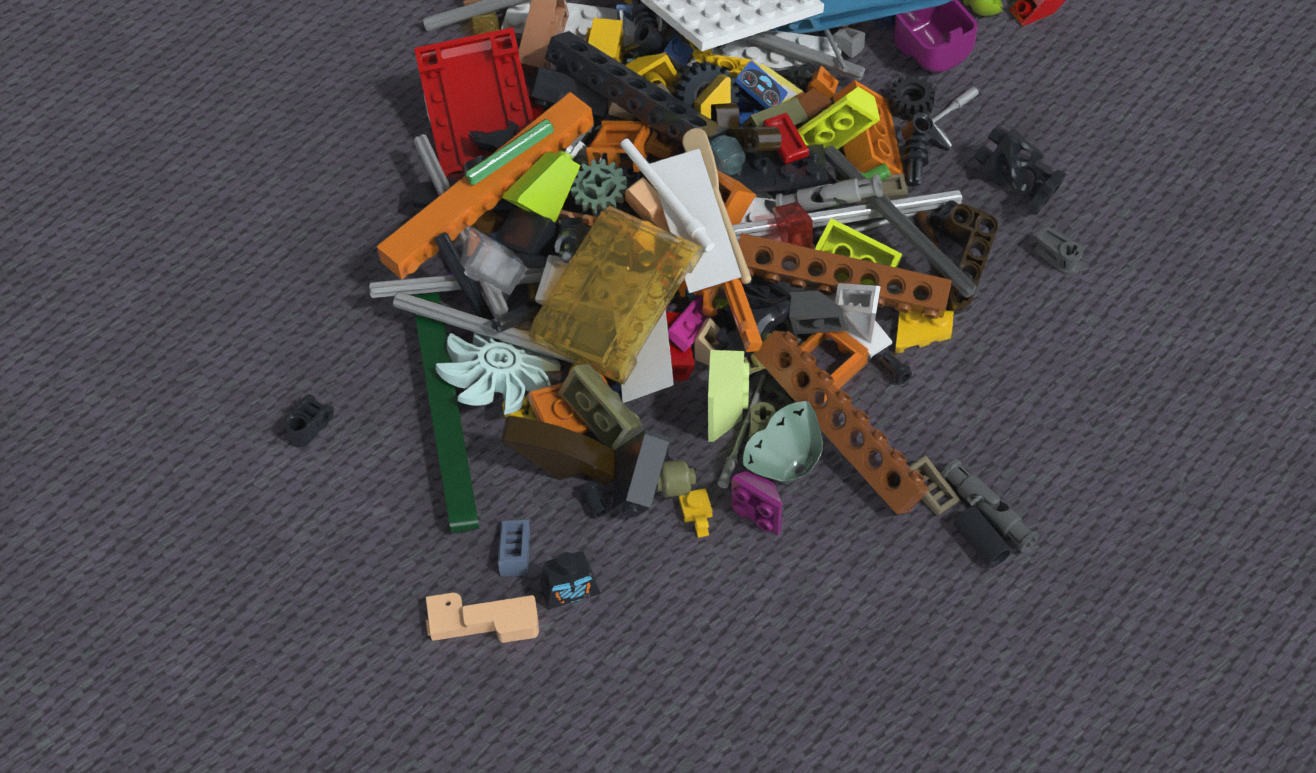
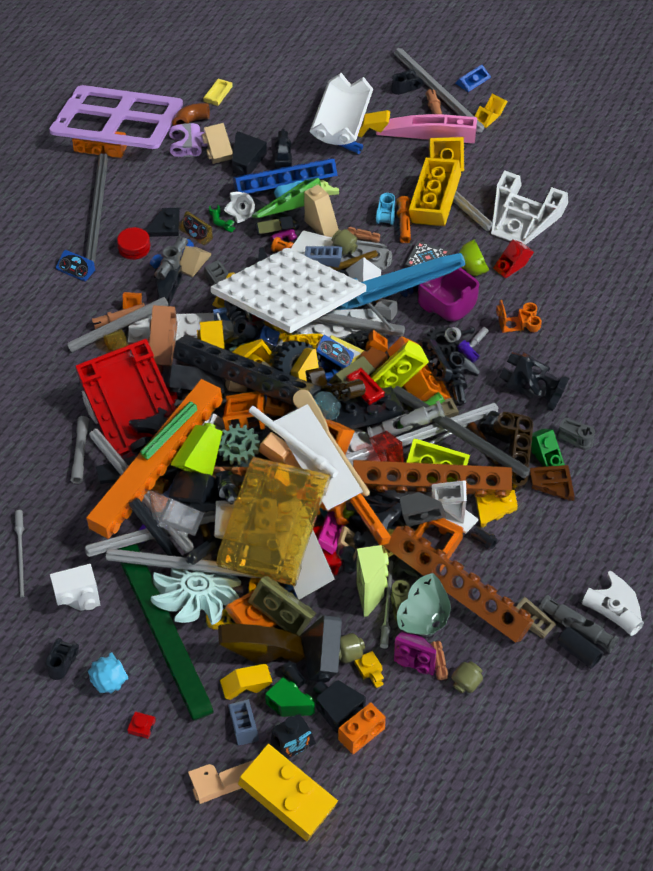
camera: 15 degrees left, 5 degrees down
(300, 246) = (19, 529): none -> light grey piece
(347, 334) = (76, 588): none -> white slope
(356, 452) = (107, 674): none -> medium azure animal
(385, 525) = (141, 725): none -> red plate
(394, 181) = (78, 468): none -> light grey piece
(537, 493) = (251, 678): none -> yellow slope
(541, 649) = (287, 792): none -> yellow brick
(577, 530) = (289, 700): none -> green slope
(642, 548) = (338, 702): none -> black torso
(662, 586) = (361, 728): none -> orange brick
(702, 355) = (346, 554): none -> black piece
(790, 517) = (440, 665): none -> nougat axle
(819, 547) = (467, 677): none -> olive head
(898, 134) = (442, 364): none -> black beam
(928, 91) = (456, 334): none -> light grey hinge
(942, 115) = (465, 348): none -> dark purple pin
(1009, 308) = (553, 480): none -> reddish brown wing
(1011, 265) = (546, 448): none -> green slope
(1035, 83) = (526, 318): none -> orange piece
(1048, 489) = (617, 604): none -> white pin

